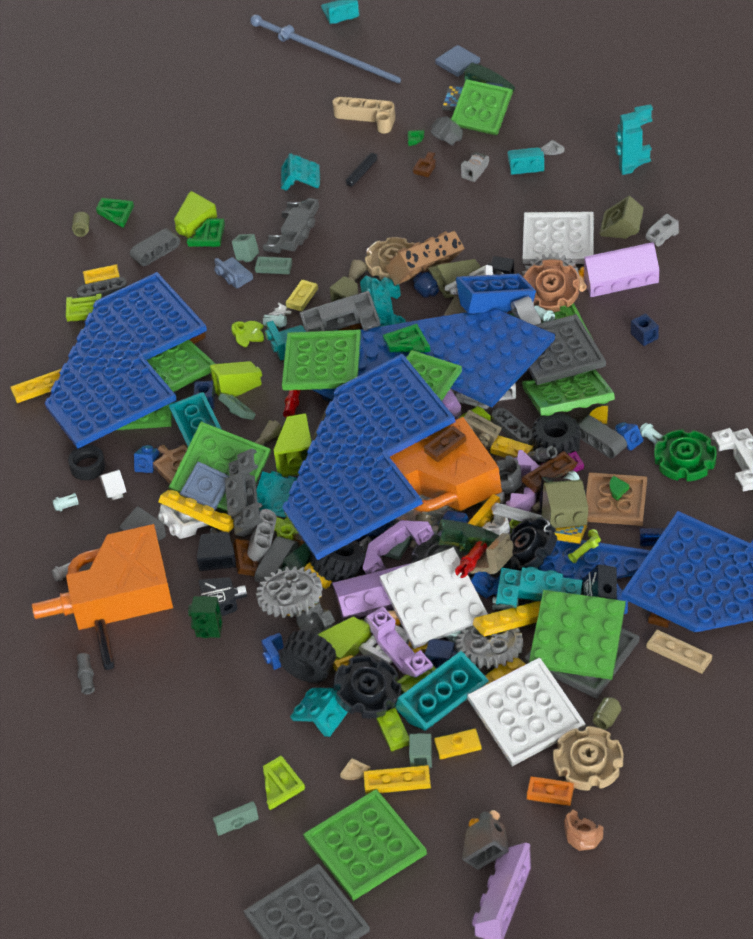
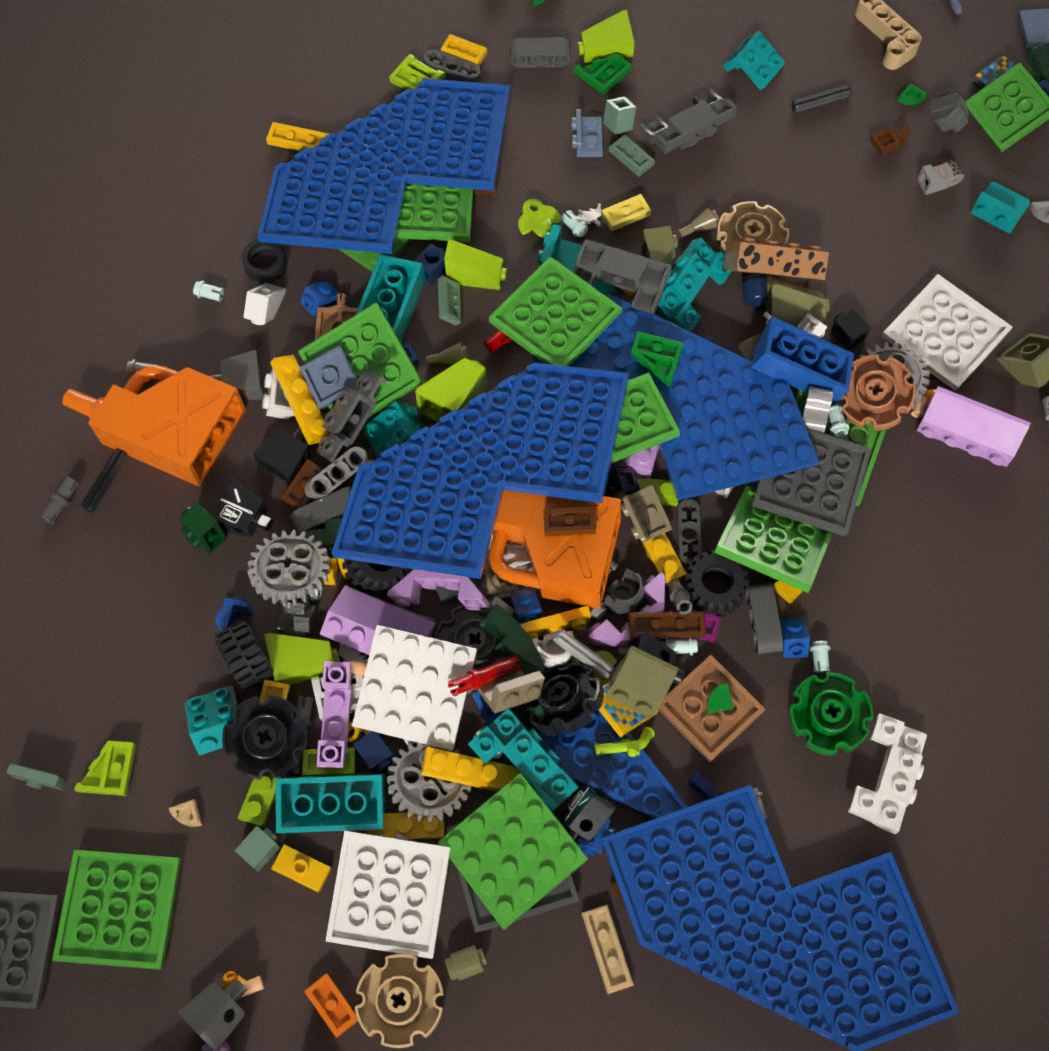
camera: 35 degrees right, 20 degrees up
(397, 779) = (209, 862): yellow plate -> none
(644, 329) = (932, 528): dark blue brick -> none

